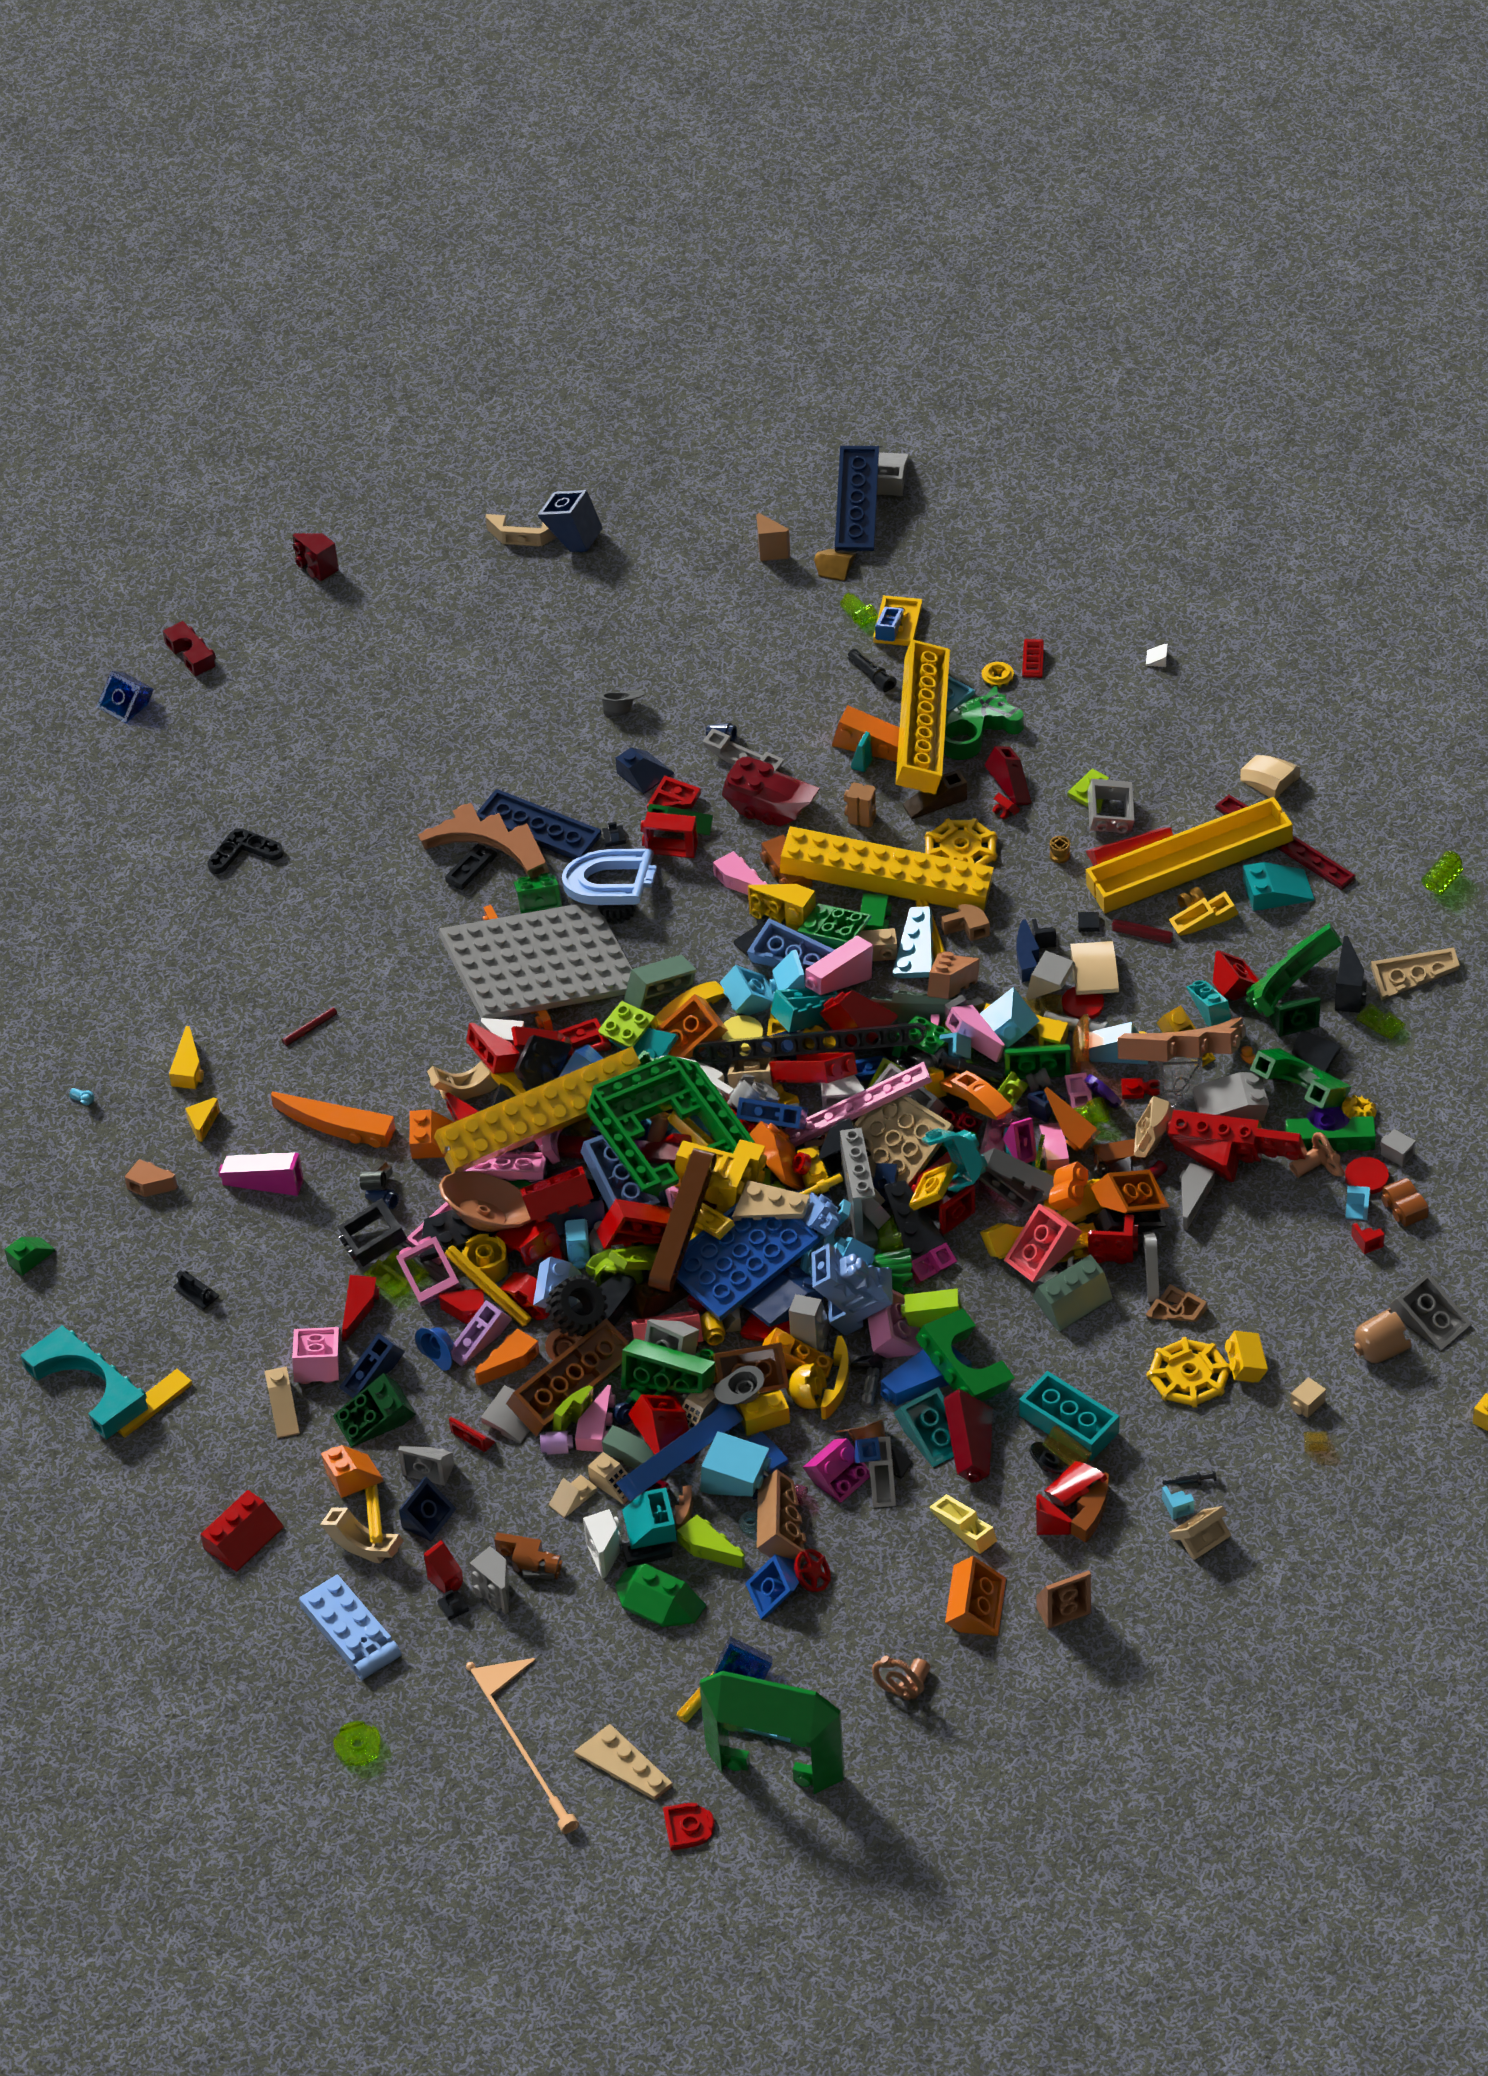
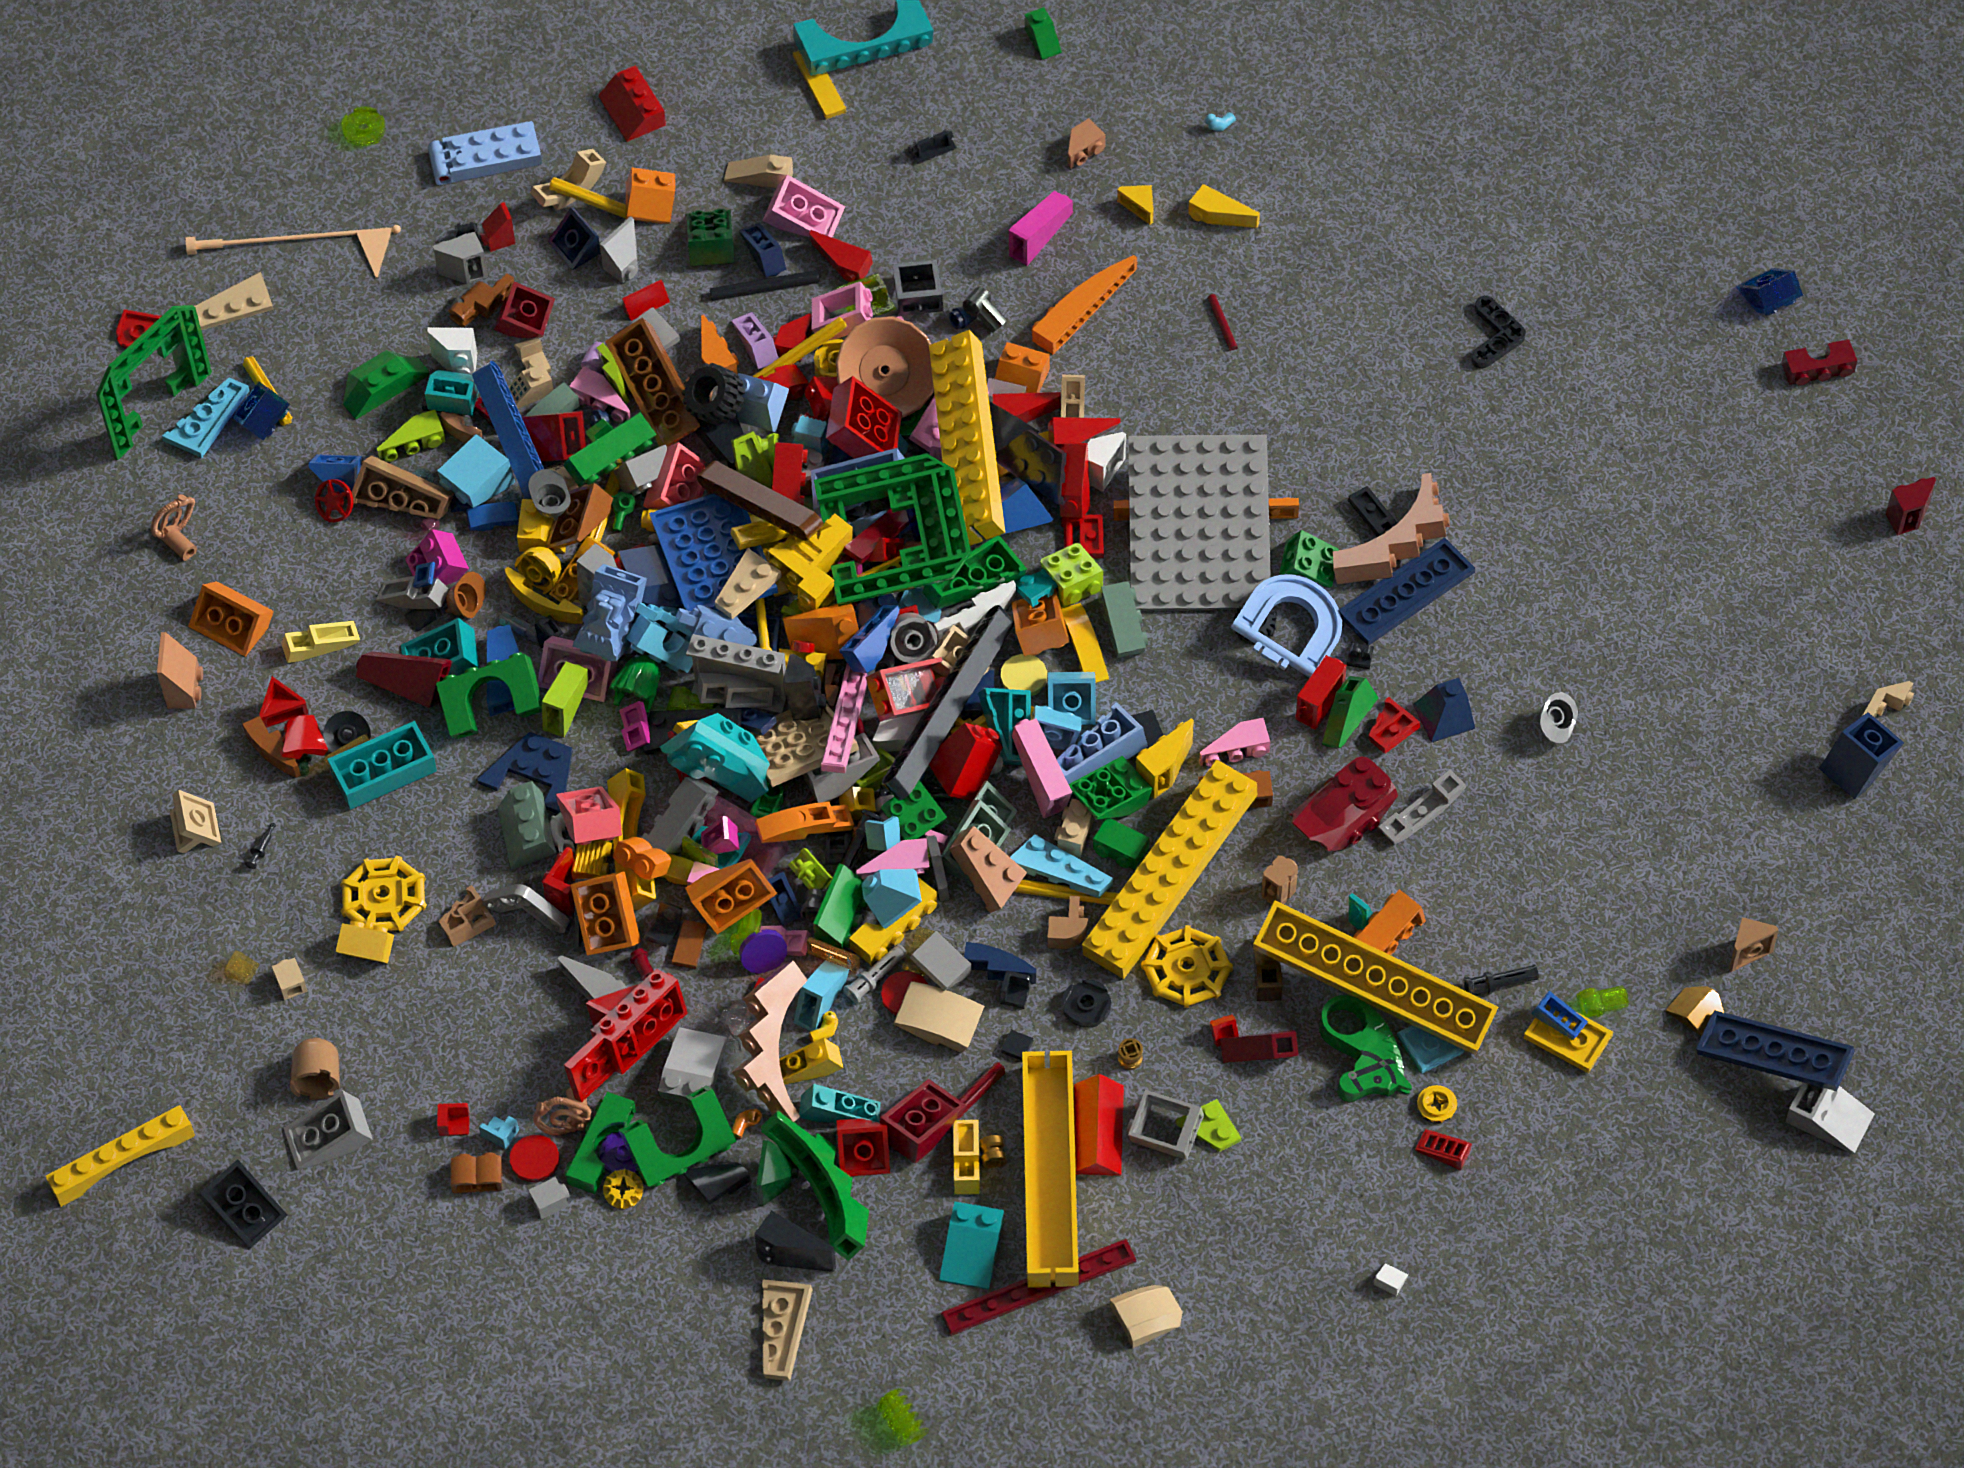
camera: 110 degrees right, 10 degrees up
(411, 1355) = (764, 285): none -> black axle
(436, 1345) = (757, 301): blue piece -> none
(531, 1514) = (524, 312): none -> dark red slope
(726, 728) = (1467, 802): dark blue cone -> none
(999, 1319) = (537, 760): none -> dark blue wing
(1028, 901) = (1082, 991): none -> black plate
(1152, 1126) = (690, 975): tan slope -> none
(1177, 1503) = (239, 820): medium azure panel -> none
(1191, 945) = (921, 1120): none -> dark red slope
(1384, 1024) = (728, 1266): clear neon green slope -> none

